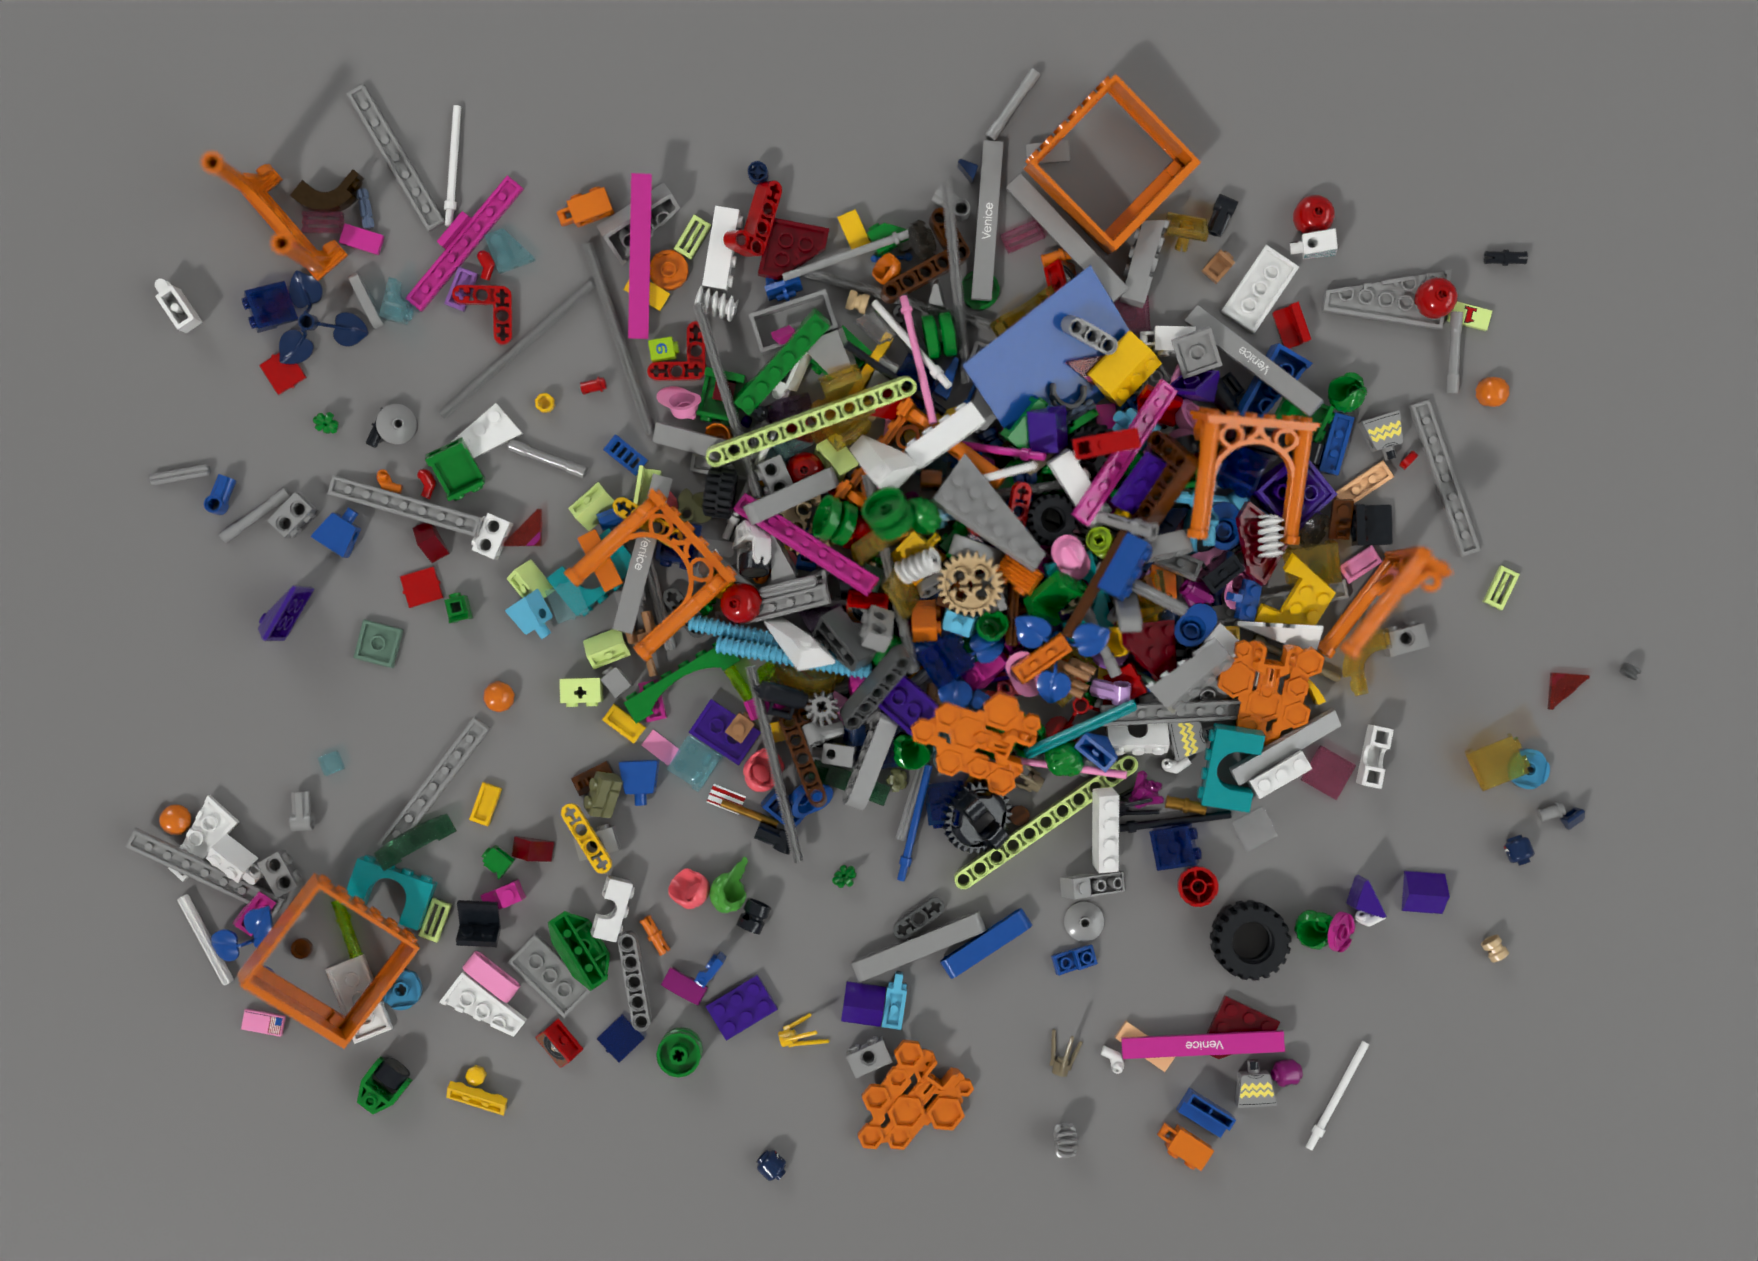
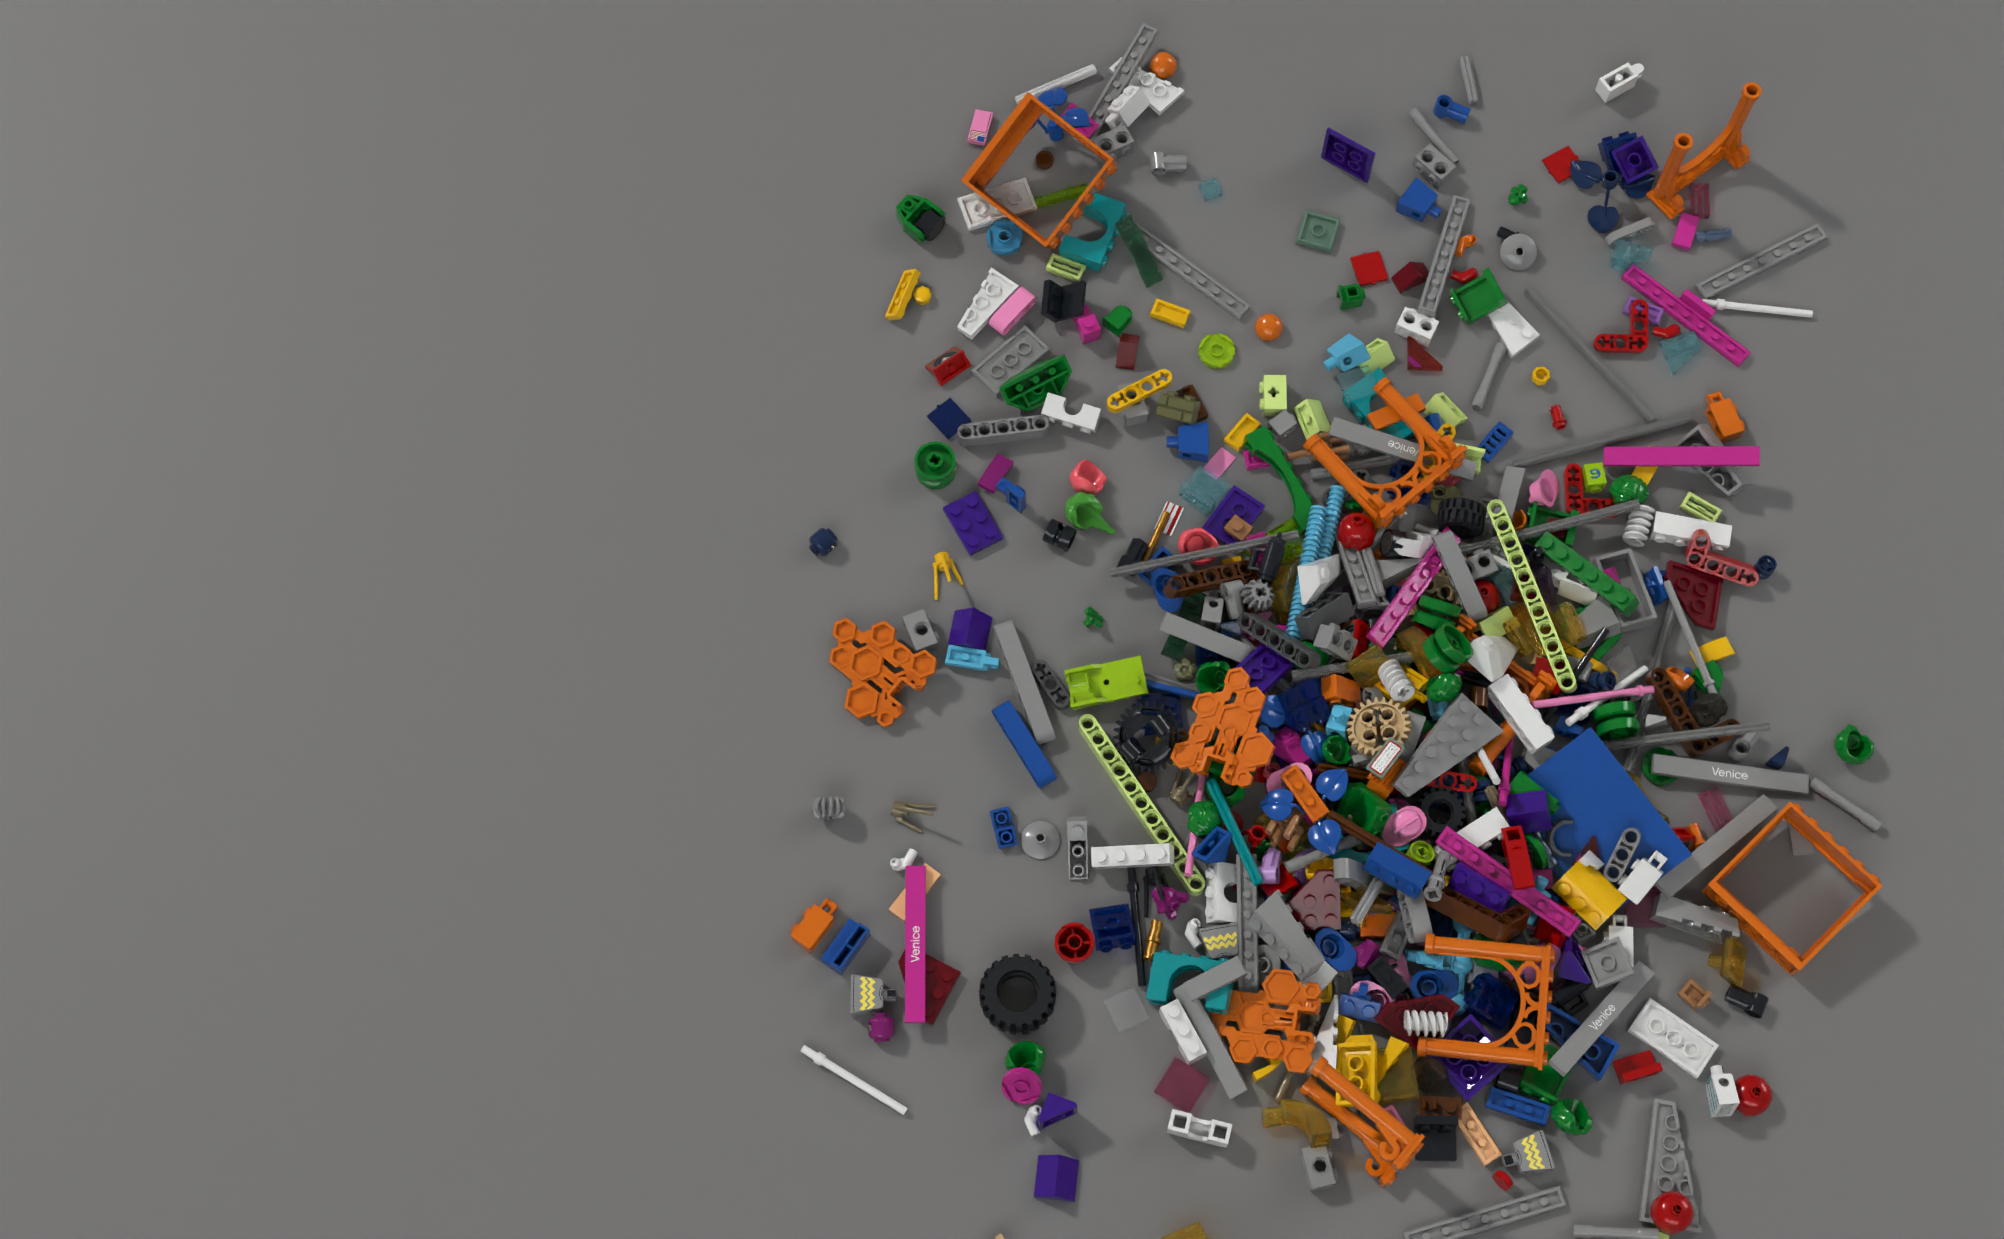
camera: 95 degrees right, 20 degrees down
(279, 293) = (1635, 159): none -> dark purple slope
(330, 201) = (1720, 210): dark brown arch -> none
(528, 752) = (1216, 351): none -> lime tile
(655, 935) = (1044, 450): orange pin -> none
(669, 270) = (1668, 487): orange tile -> none
(678, 312) = (1628, 488): none -> green hair
(857, 301) = (1645, 651): tan wheel -> none
(897, 346) = (1602, 680): none -> dark blue wheel
(912, 843) = (1088, 688): none -> lime piece
(953, 92) = (1853, 746): none -> green hair
(1009, 578) = (1385, 758): none -> slope
(1094, 366) = (1591, 859): none -> white tile
(1112, 316) = (1642, 877): none -> white brick
(1235, 746) = (1215, 979): none -> light grey tile
(1319, 603) = (1358, 1063): none -> yellow slope

